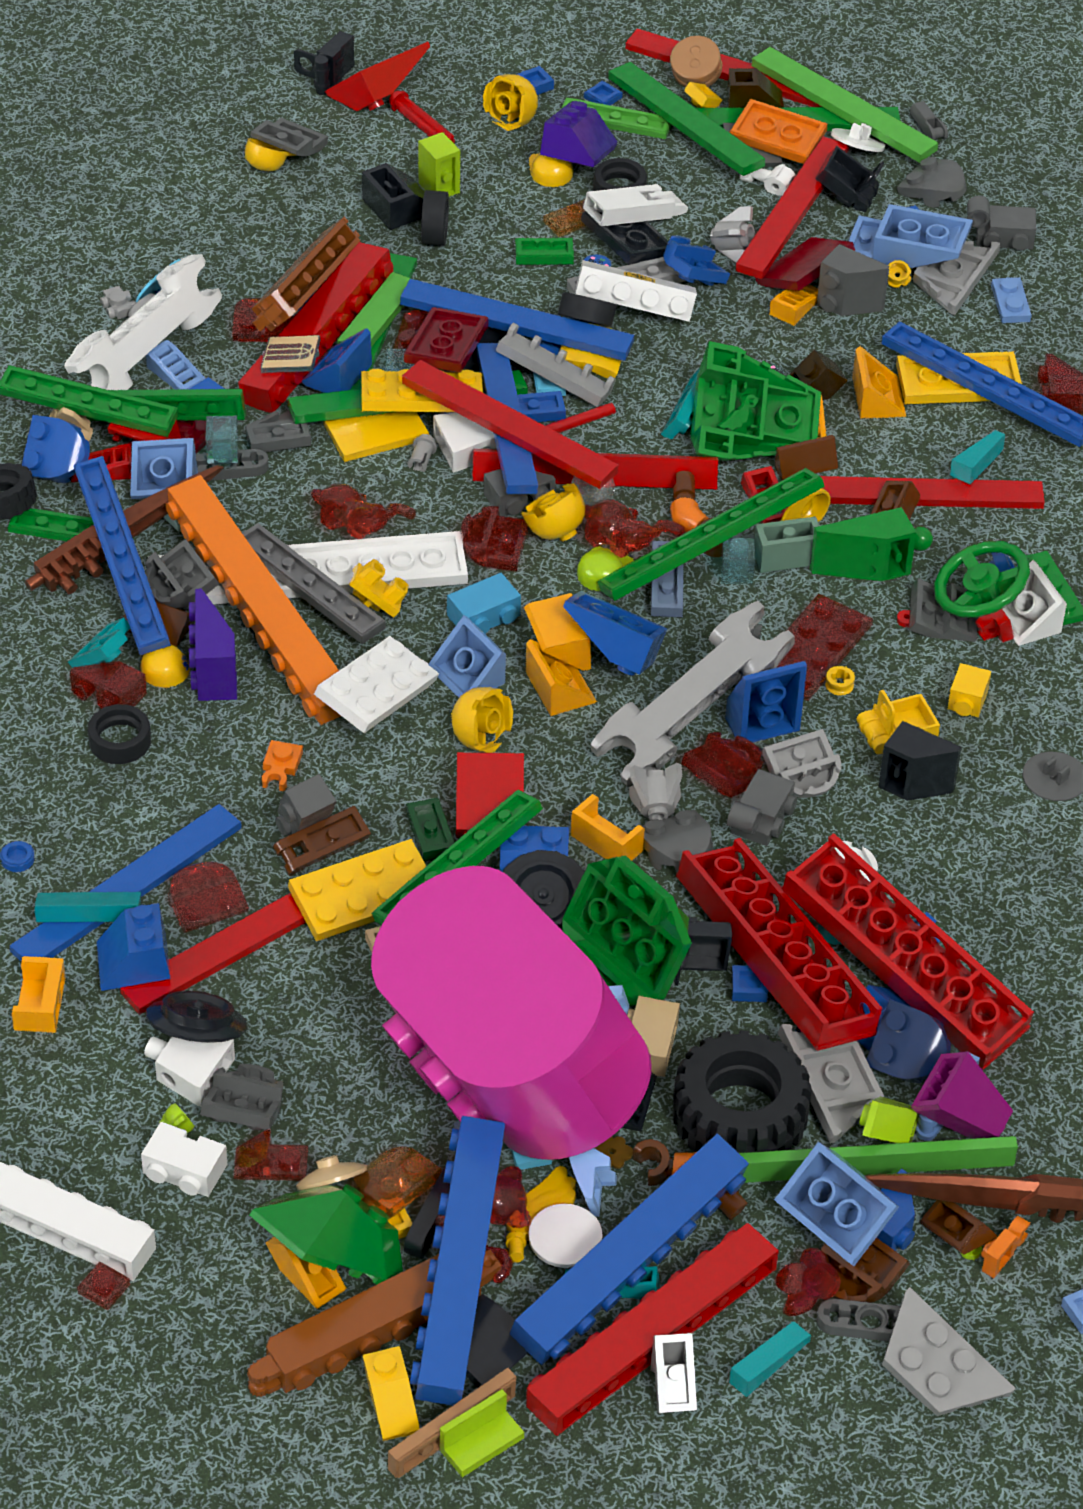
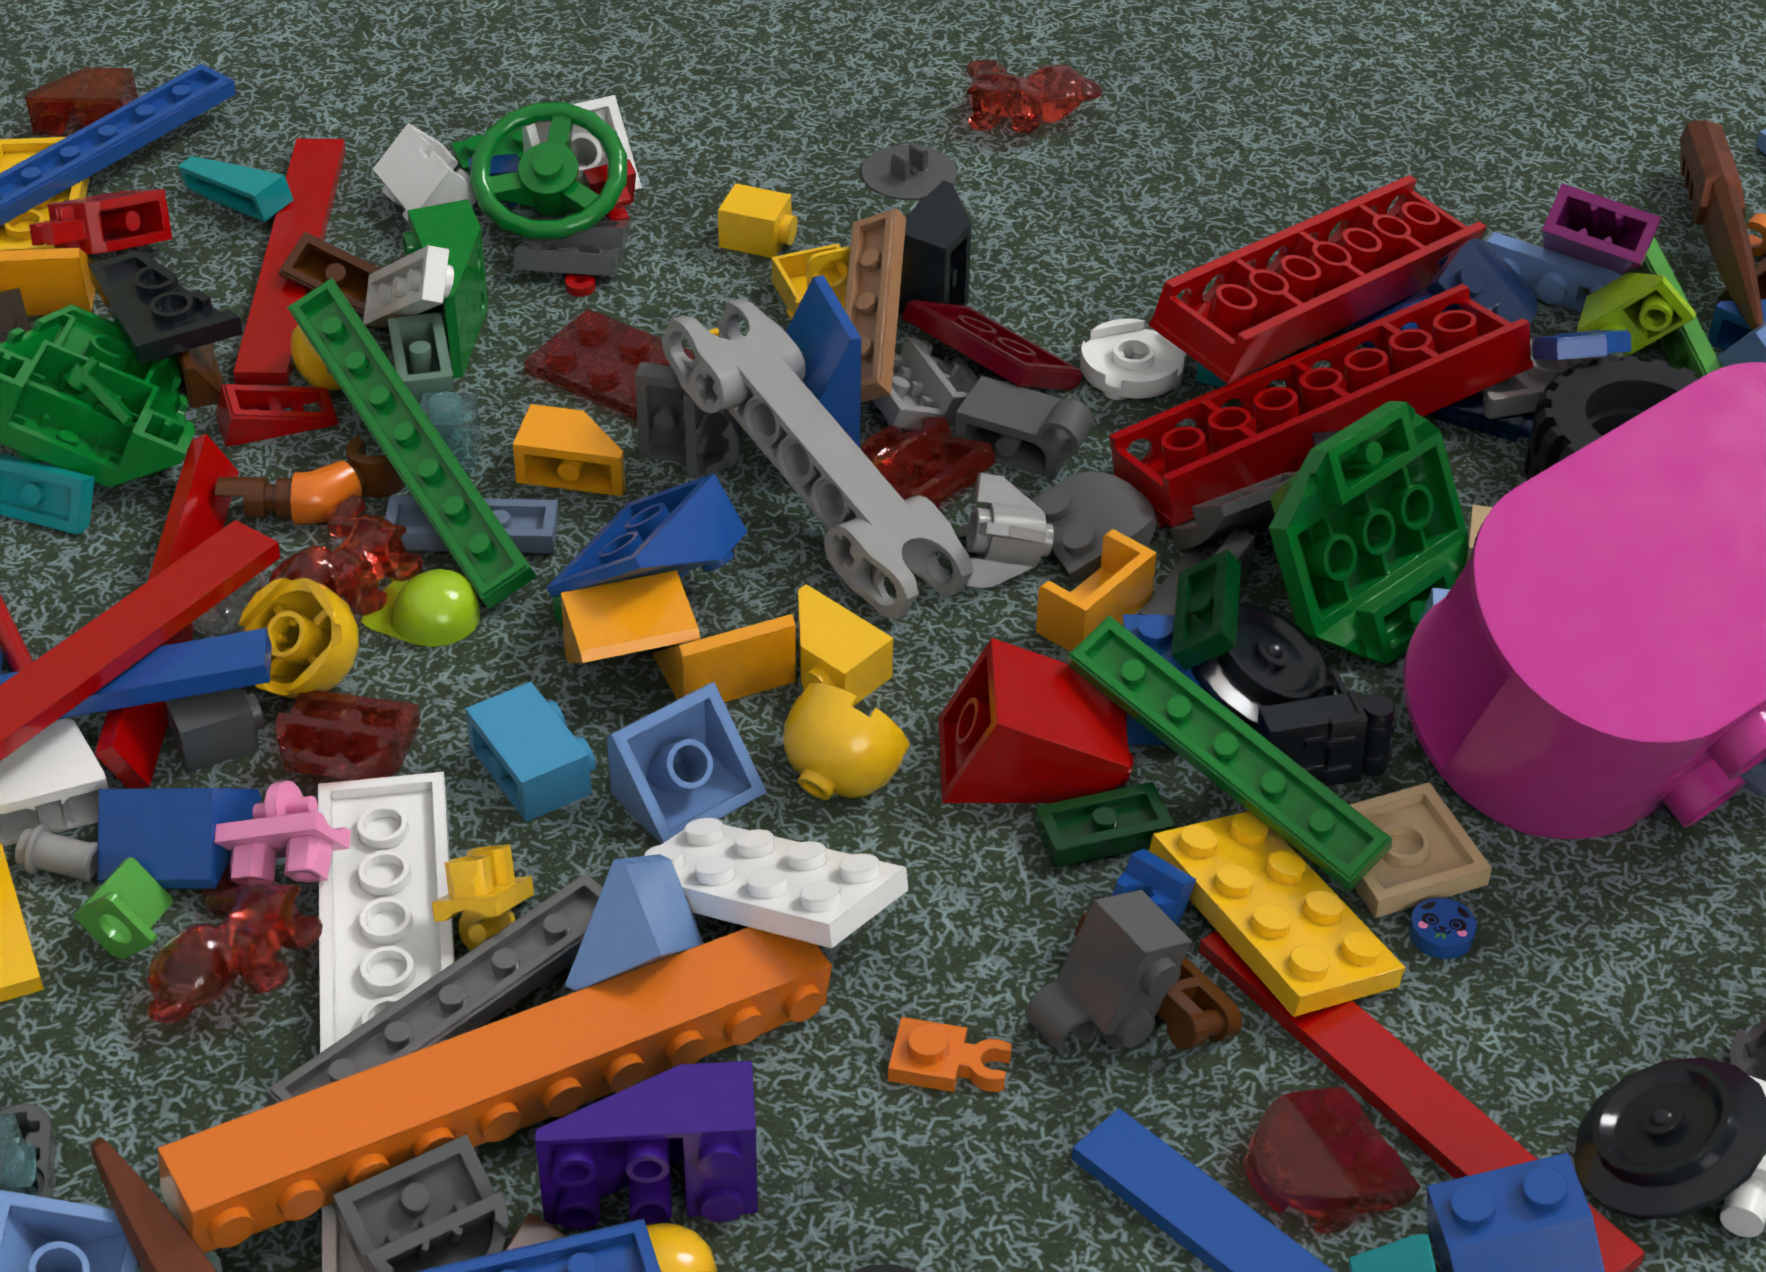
camera: 90 degrees left, 5 degrees down
(338, 628) = (635, 921): none -> medium blue slope
(355, 964) = (1442, 928): none -> blue tile
(378, 835) = (1160, 880): none -> blue tile
(380, 475) = (125, 910): none -> bright green bracket
(412, 516) = (281, 828): none -> bright pink hips
(434, 485) = (170, 832): none -> blue slope
(538, 847) = (1206, 610): none -> dark green plate
(561, 721) = (840, 646): none -> yellow slope
(672, 884) = (1229, 511): none -> dark grey slope
(727, 600) = (567, 452): none -> light orange slope
(817, 1057) = (1581, 344): none -> blue tile
(821, 511) = (408, 286): none -> white plate
(824, 425) = (155, 310): none -> black wing
(839, 795) = (992, 345): none -> dark red tile
(843, 722) = (875, 295): none -> medium nougat tile
(912, 399) = (106, 222): none -> red hinge
(996, 527) = (421, 172): none -> white brick

